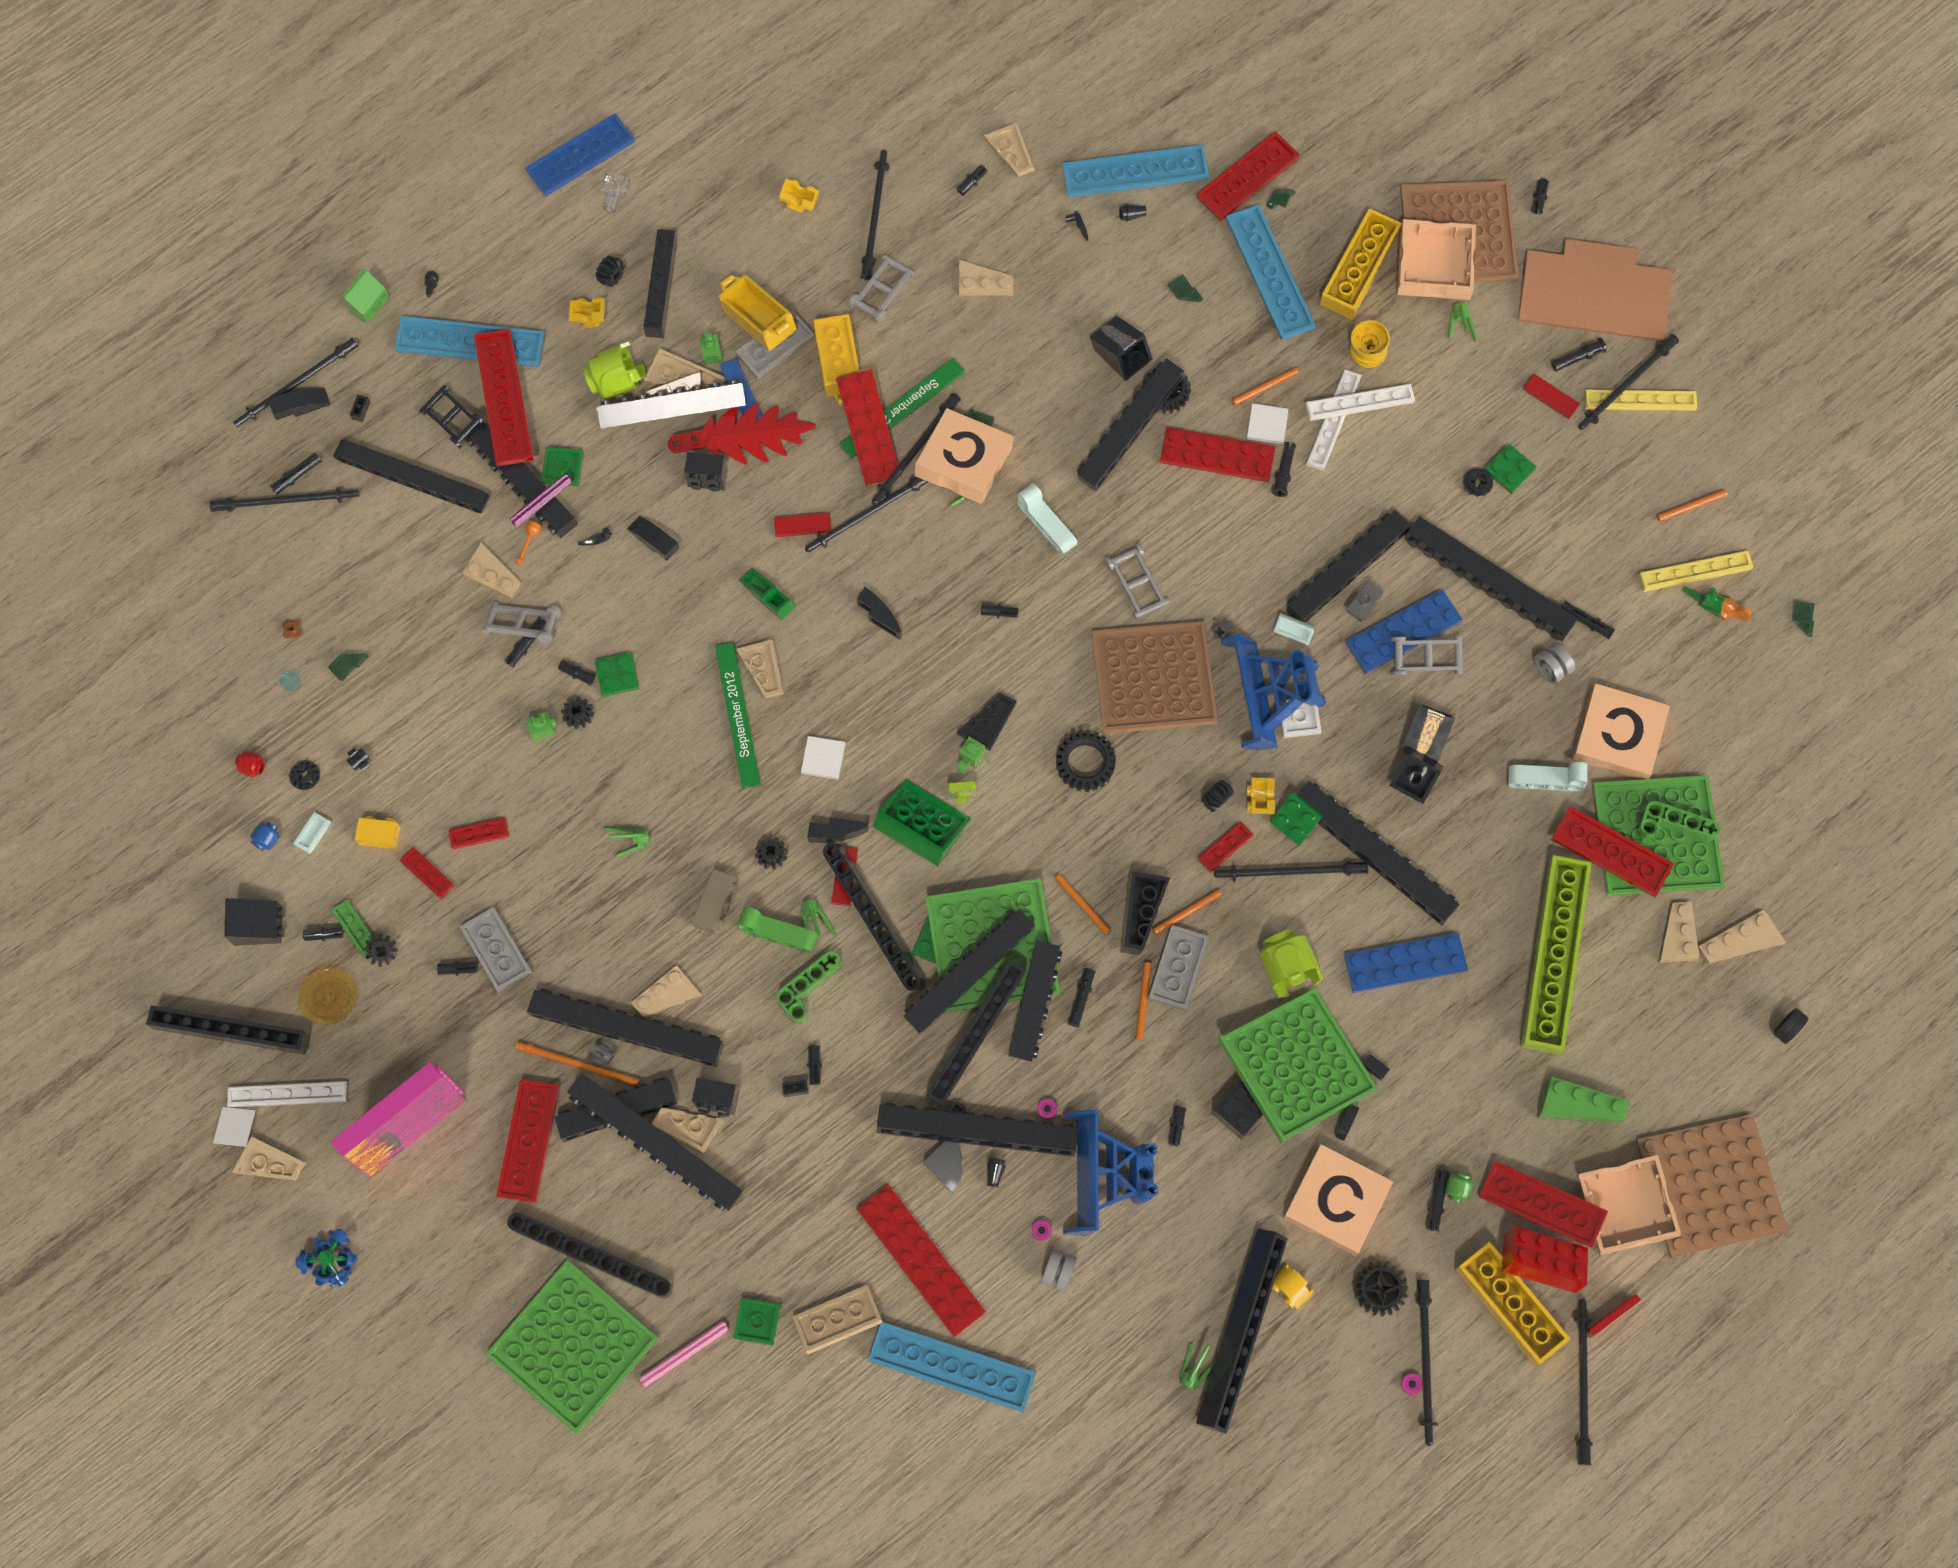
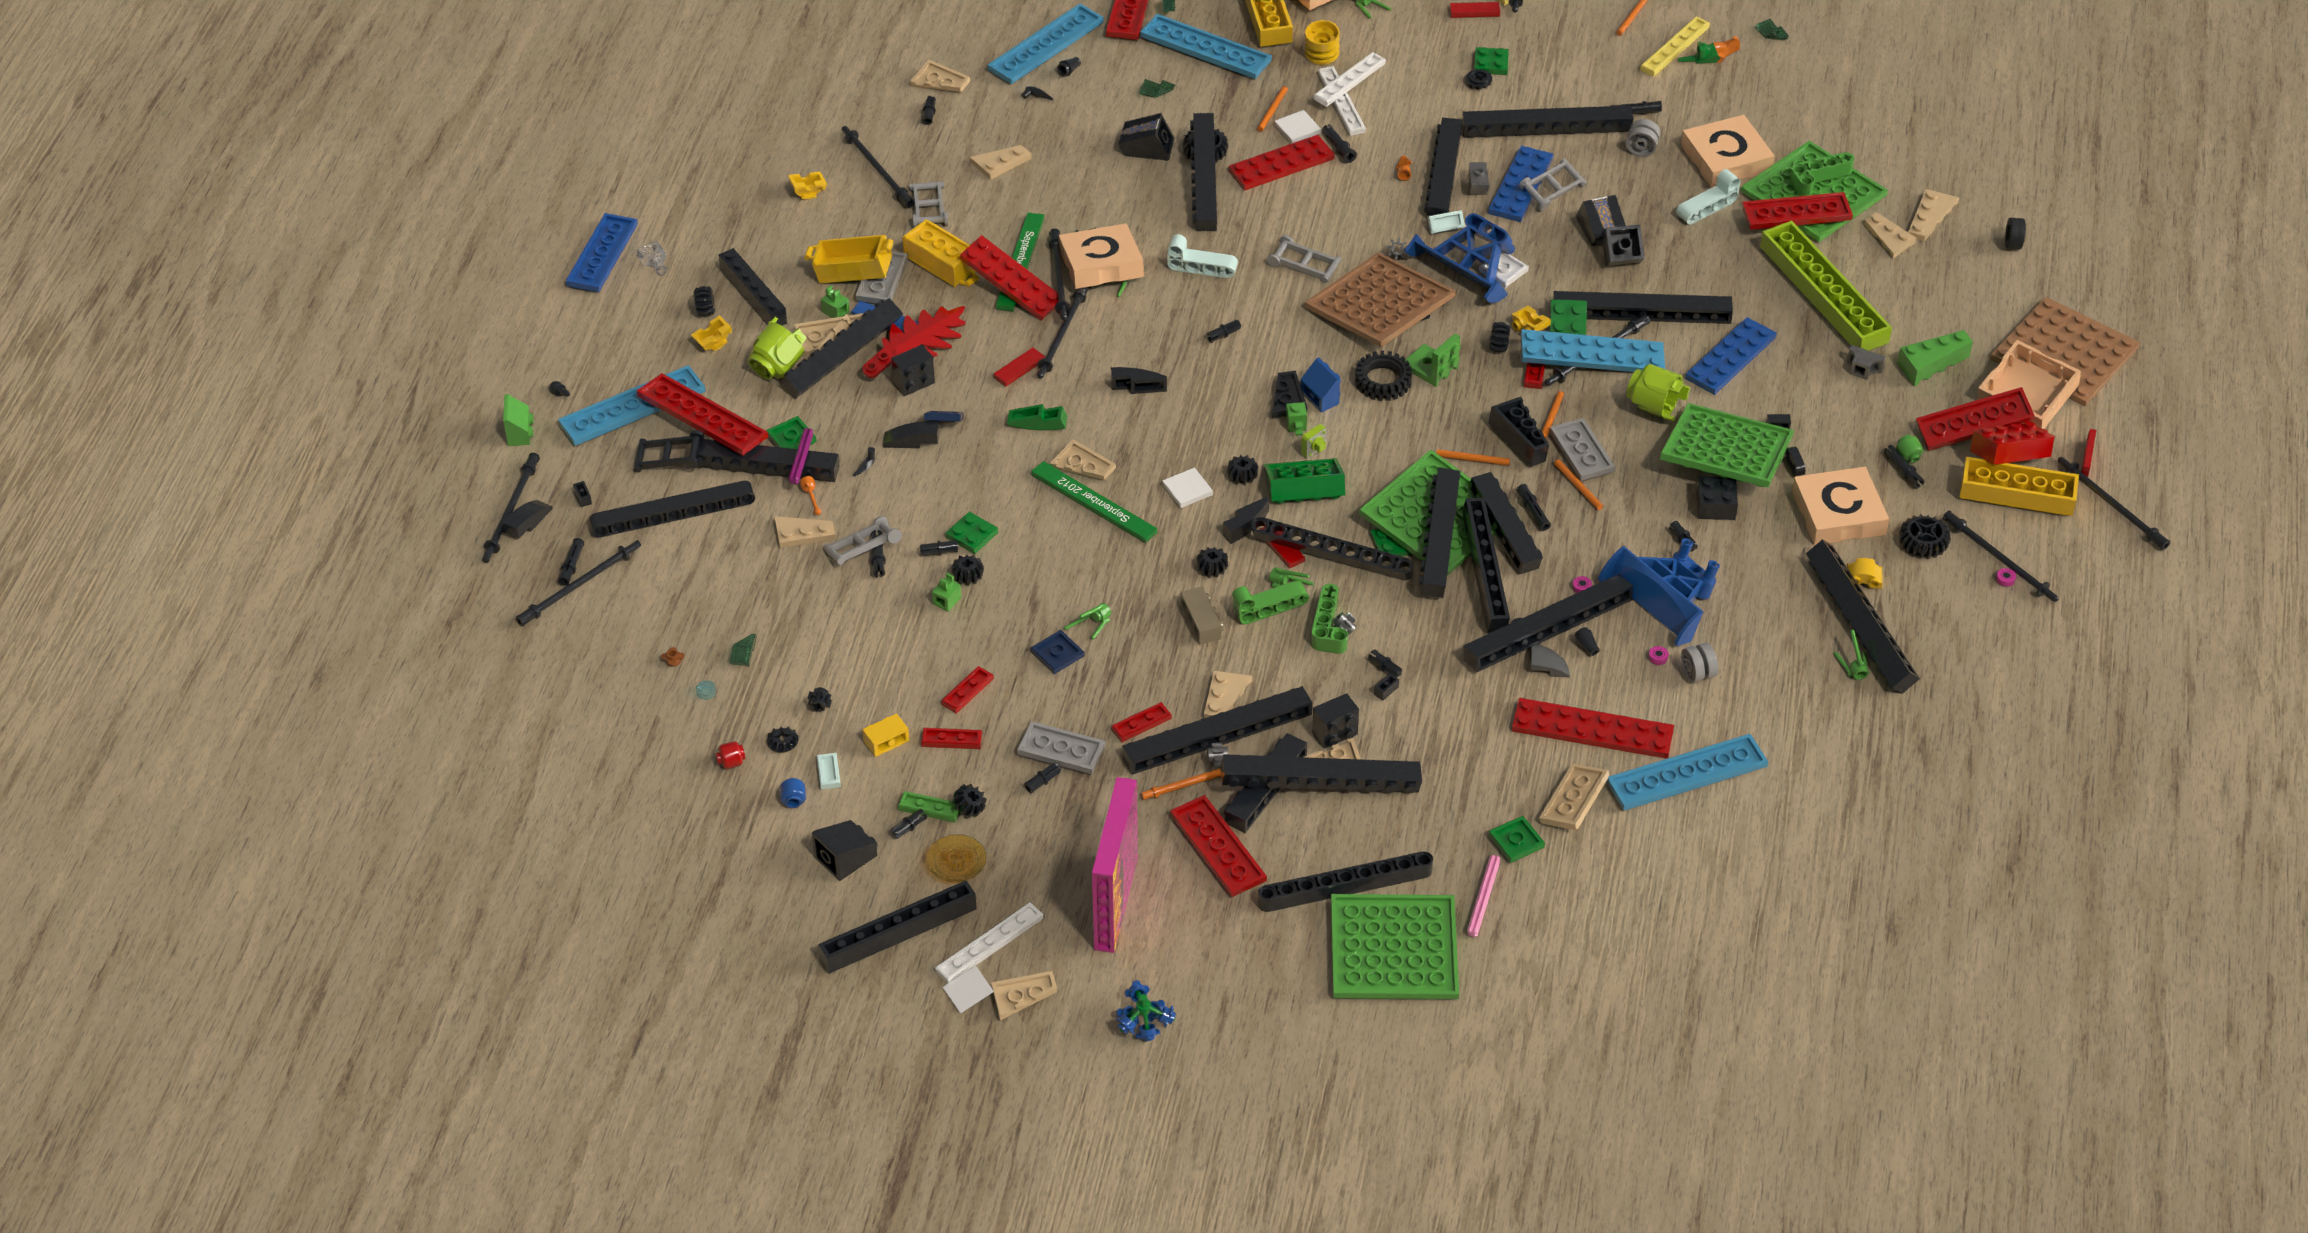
camera: 40 degrees left, 25 degrees down
(577, 849) = (1057, 651): none -> dark blue tile
(579, 970) = (1141, 722): none -> red tile
(691, 538) = (944, 415): none -> dark blue tile
(816, 1000) = (1345, 622): none -> flat silver gear
(878, 768) = (1242, 469): none -> black gear
(1017, 740) = (1321, 385): none -> blue slope
(1134, 788) = (1442, 360): none -> bright green bracket
(1282, 872) = (1590, 351): none -> dark azure plate
(1310, 545) = (1403, 169): none -> orange piece
(1512, 1062) = (1864, 362): none -> flat silver brick

